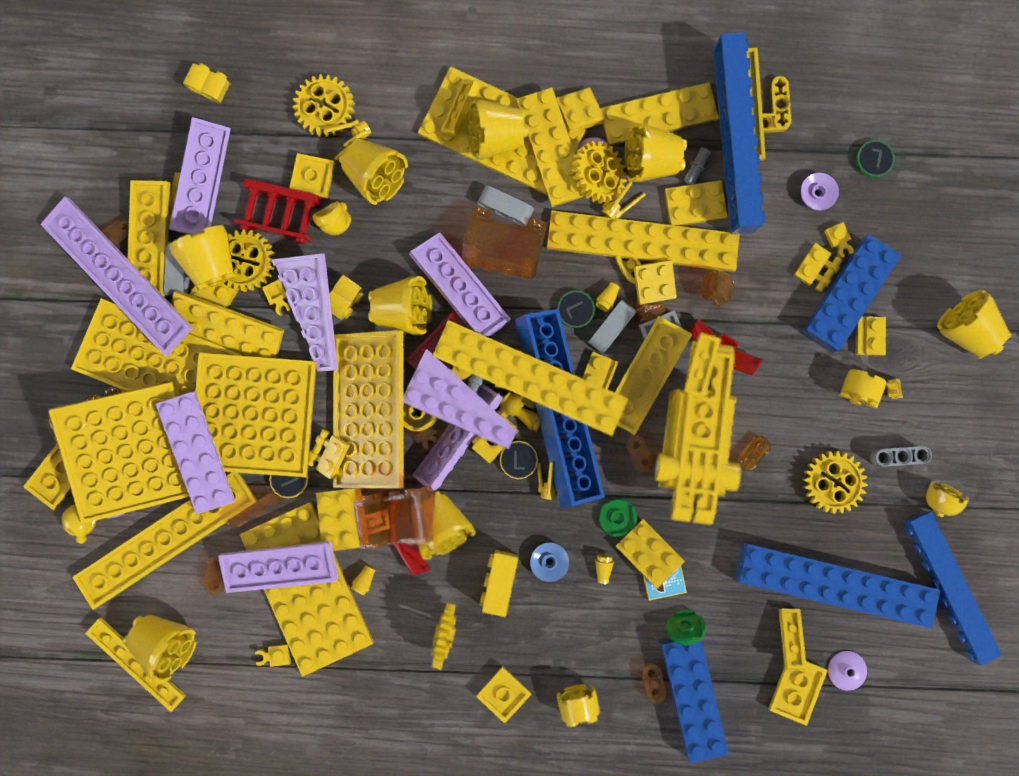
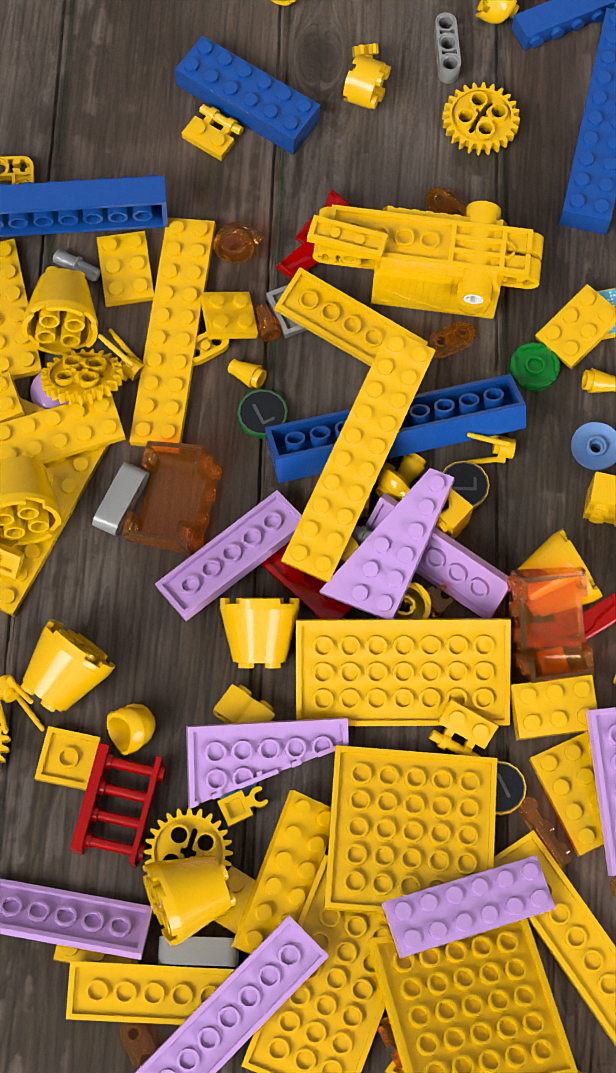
camera: 95 degrees left, 15 degrees down
(600, 370) = (342, 385): yellow plate -> none
(612, 326) = (287, 367): light grey beam -> none
(825, 185) = (116, 117): lavender dish -> none
(838, 237) = (175, 109): yellow plate -> none
(871, 336) = (301, 75): yellow plate -> none
(875, 159) = (76, 66): black tile -> none

